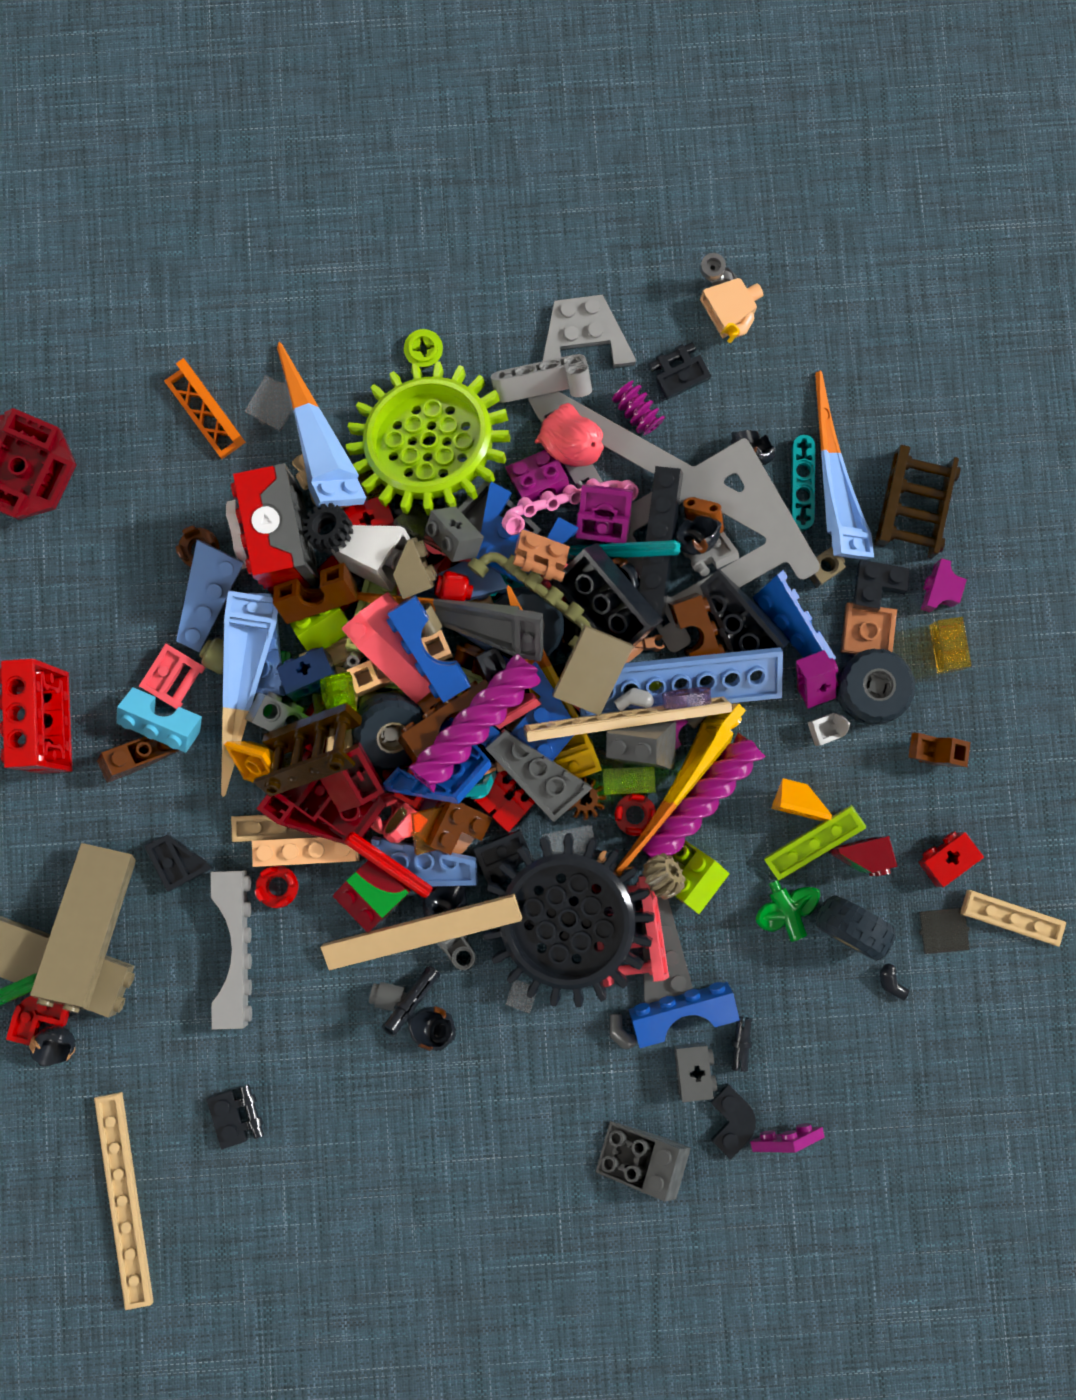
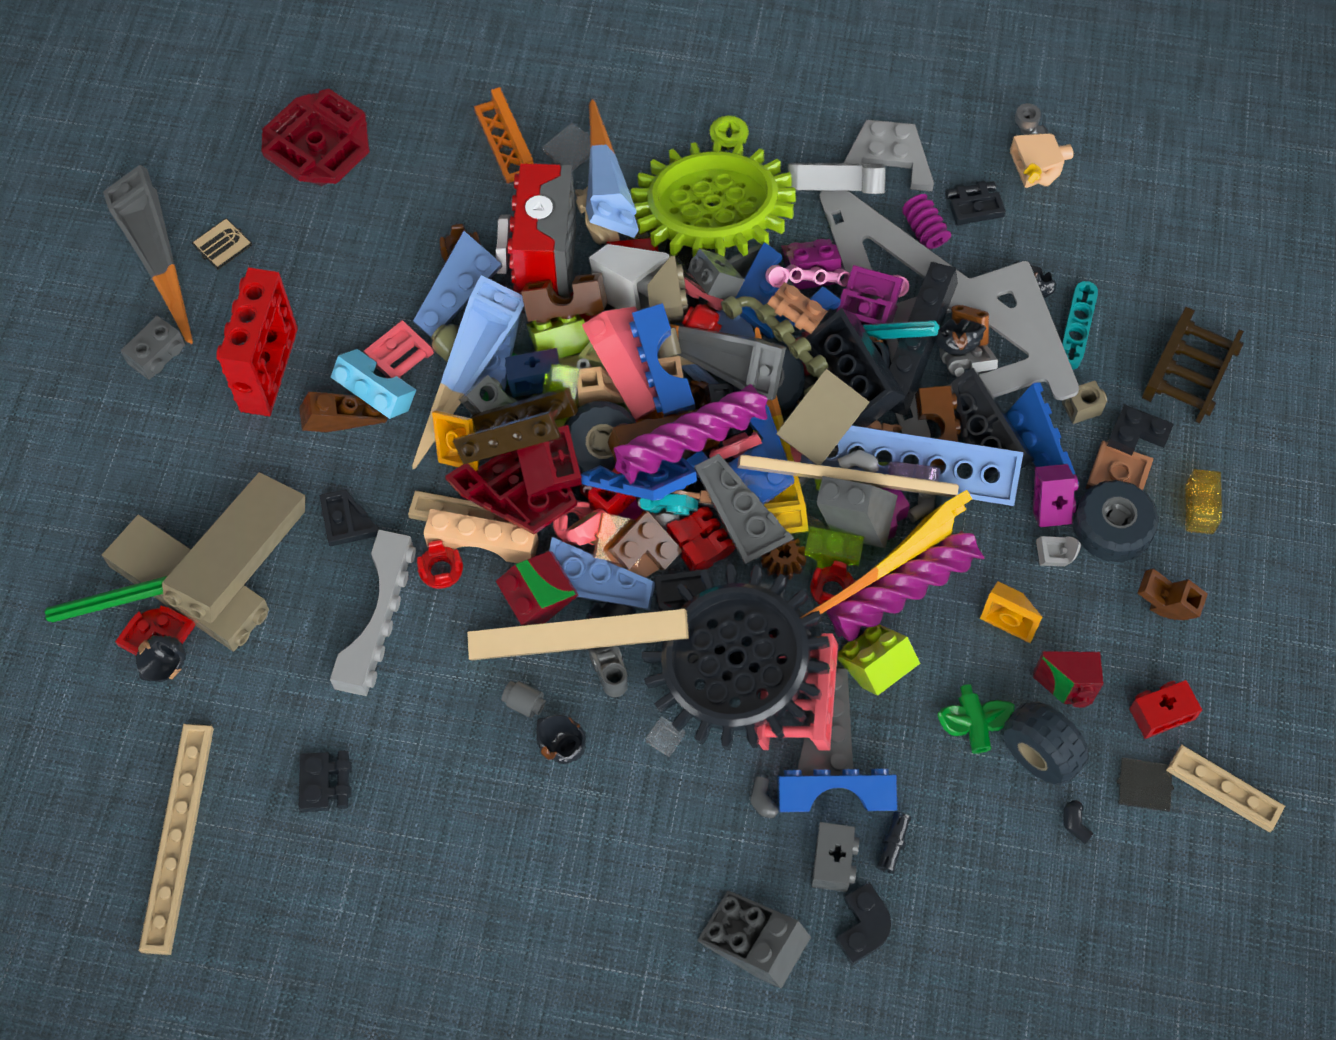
camera: 15 degrees right, 20 degrees down
(319, 520) = (594, 240): black tyre -> none
(388, 864) = (563, 559): red axle -> none
(405, 1008) = (525, 713): black pin -> none
(570, 436) = (852, 229): coral piece -> none
(664, 876) = (848, 635): dark tan gear -> none
(787, 1141) = (922, 947): magenta plate -> none
(815, 842) = (1018, 652): lime piece -> none
(843, 514) = (1113, 353): light blue plate -> none
(942, 587) = (1205, 448): magenta brick -> none

